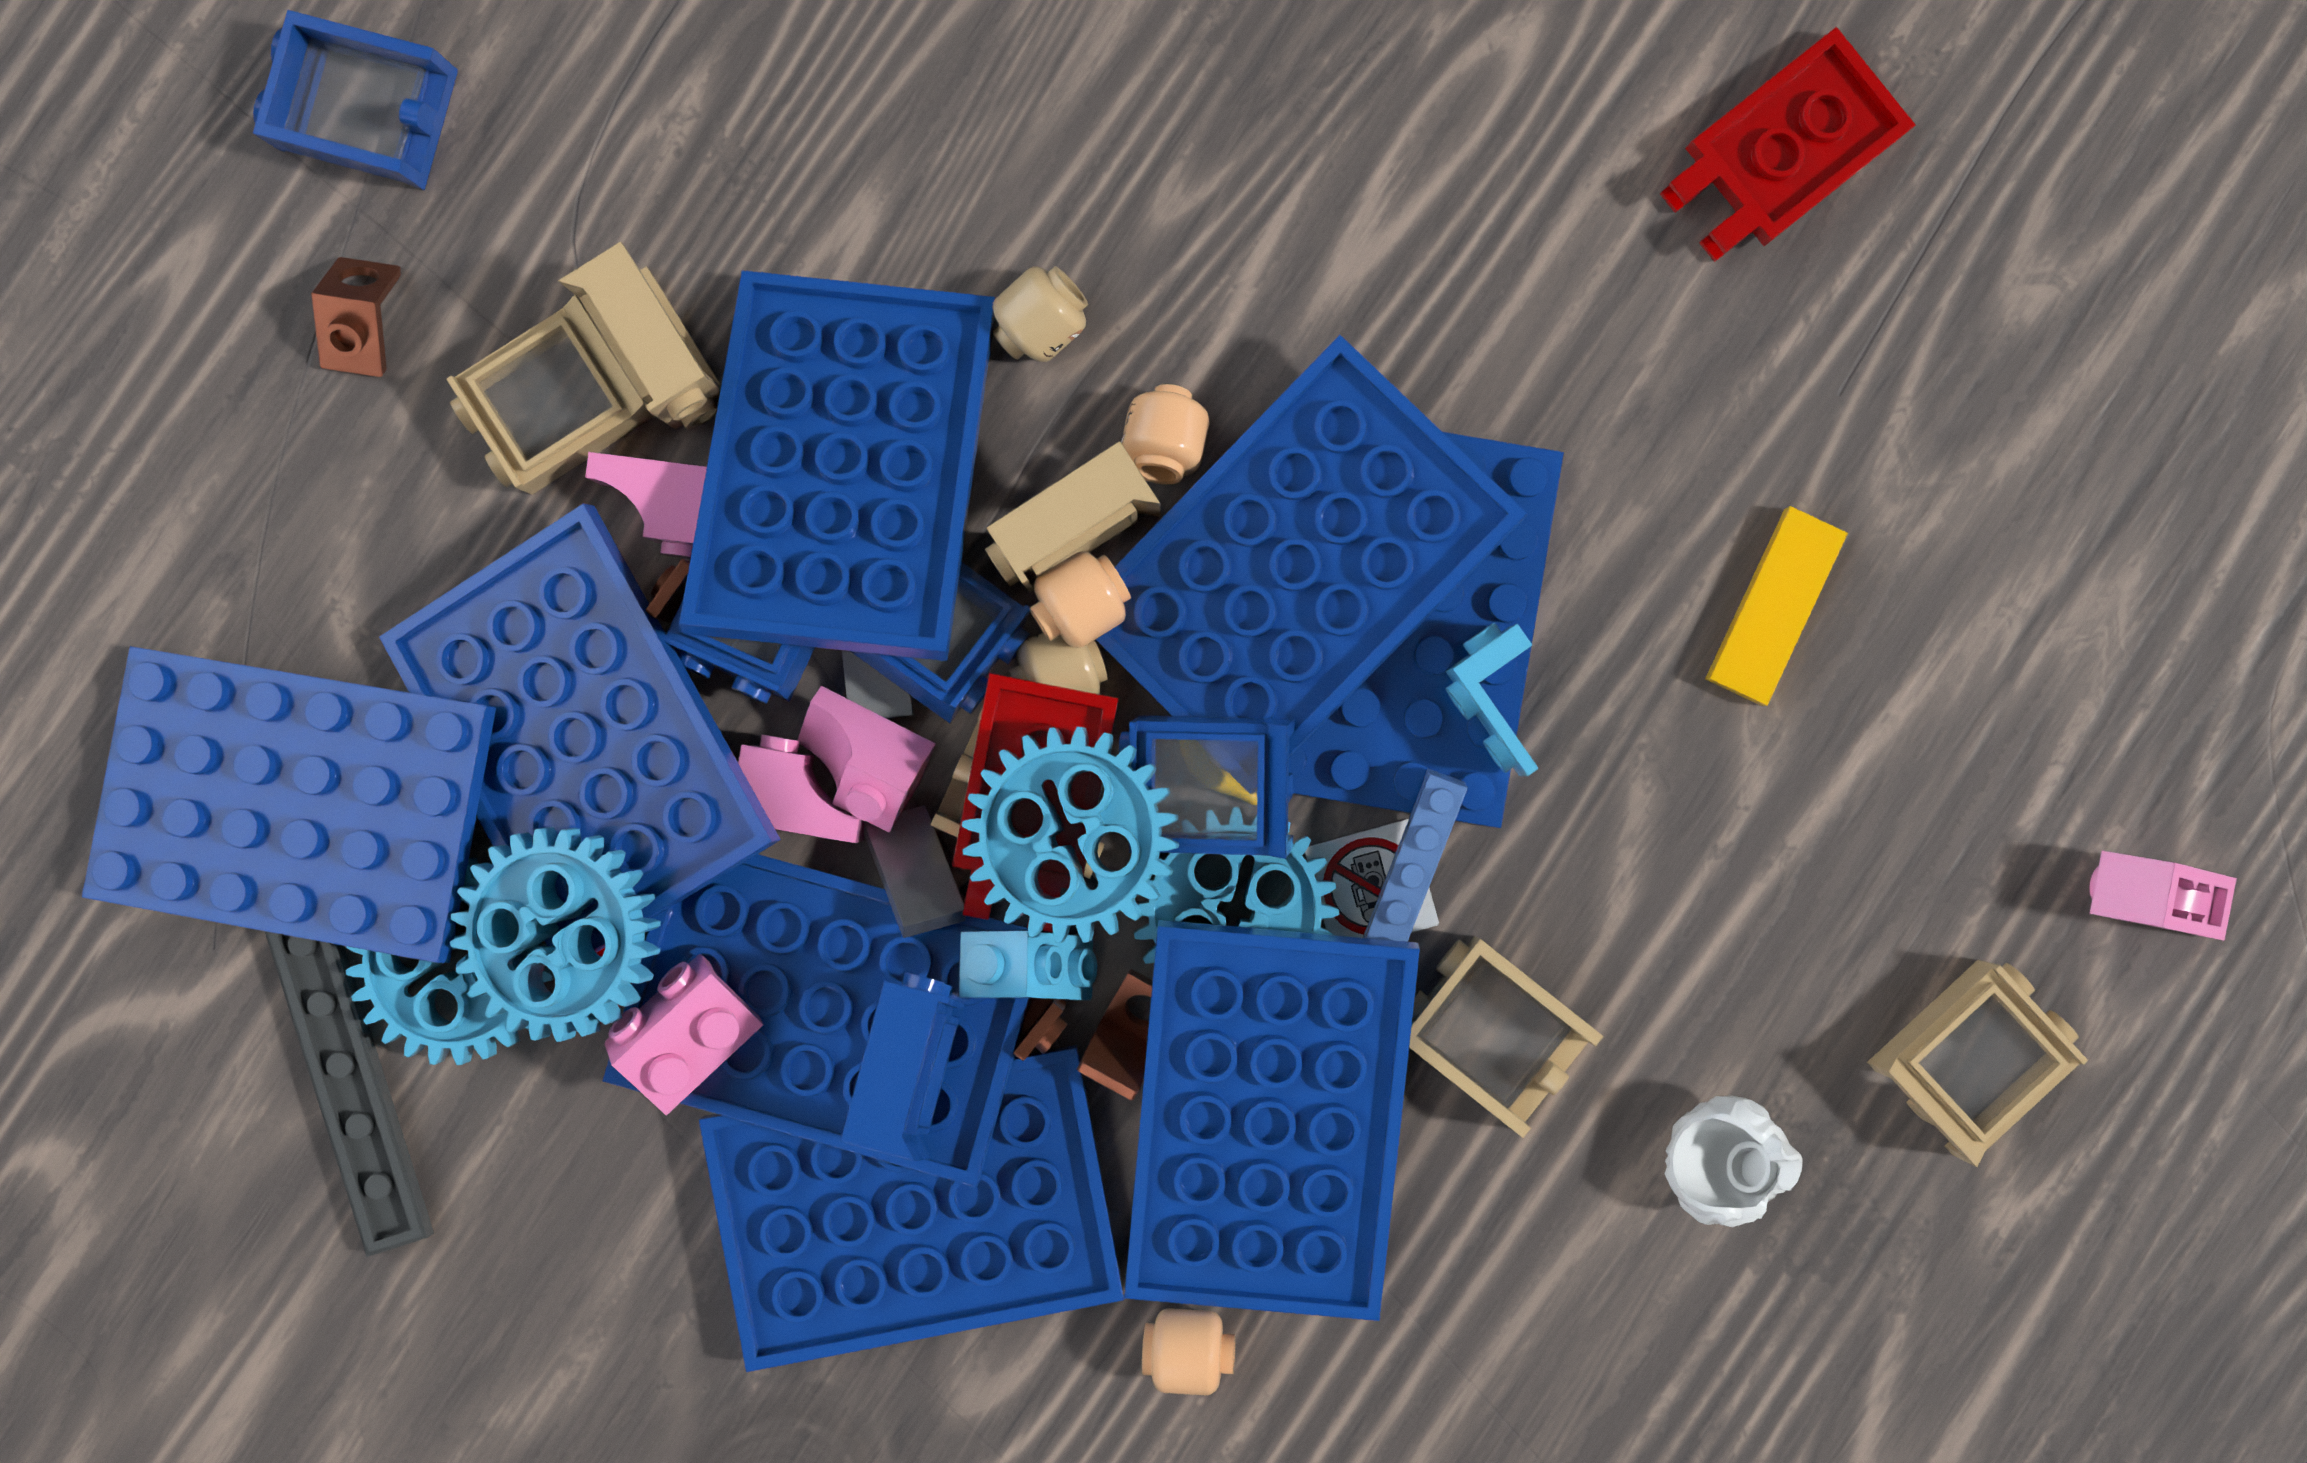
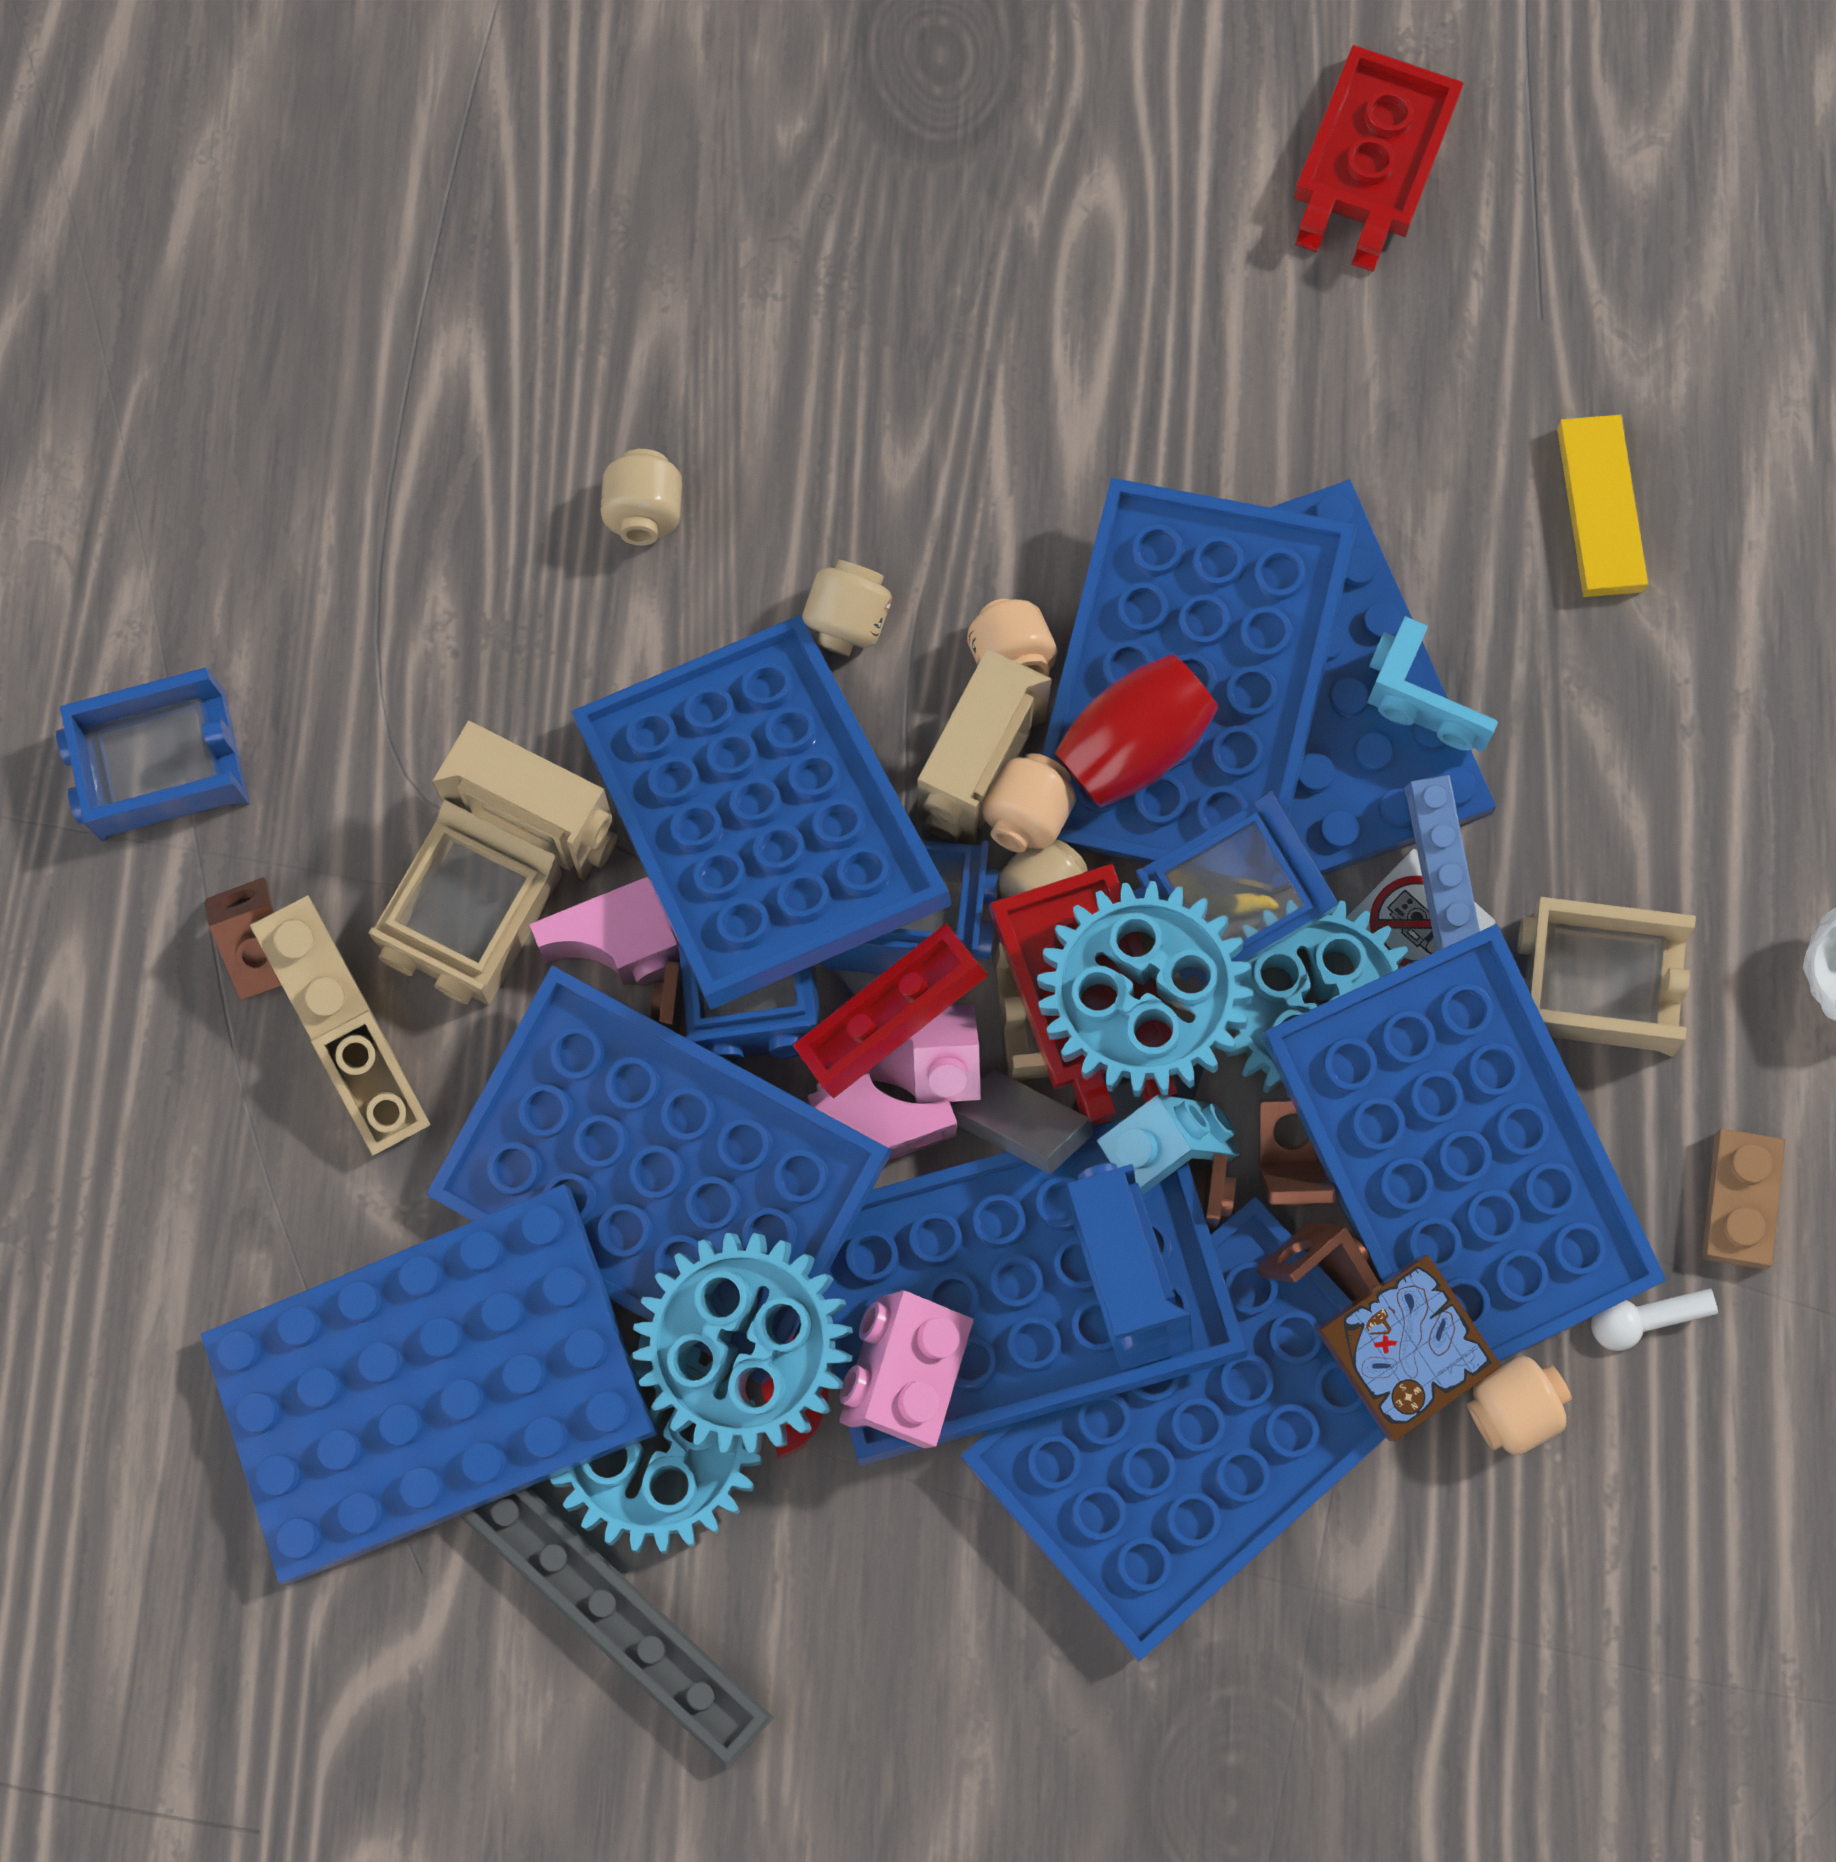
camera: 30 degrees left, 15 degrees down
(388, 446) = (340, 1025): none -> tan slope
(845, 719) = (889, 1010): none -> red plate
(916, 102) = (641, 495): none -> tan head
(1105, 1131) = (1334, 1248): none -> copper bracket
(1119, 1256) = (1408, 1347): none -> tile
(1210, 592) = (1136, 730): none -> red piece
(1326, 1332) = (1624, 1323): none -> white bar
(1492, 1286) = (1743, 1199): none -> medium nougat plate

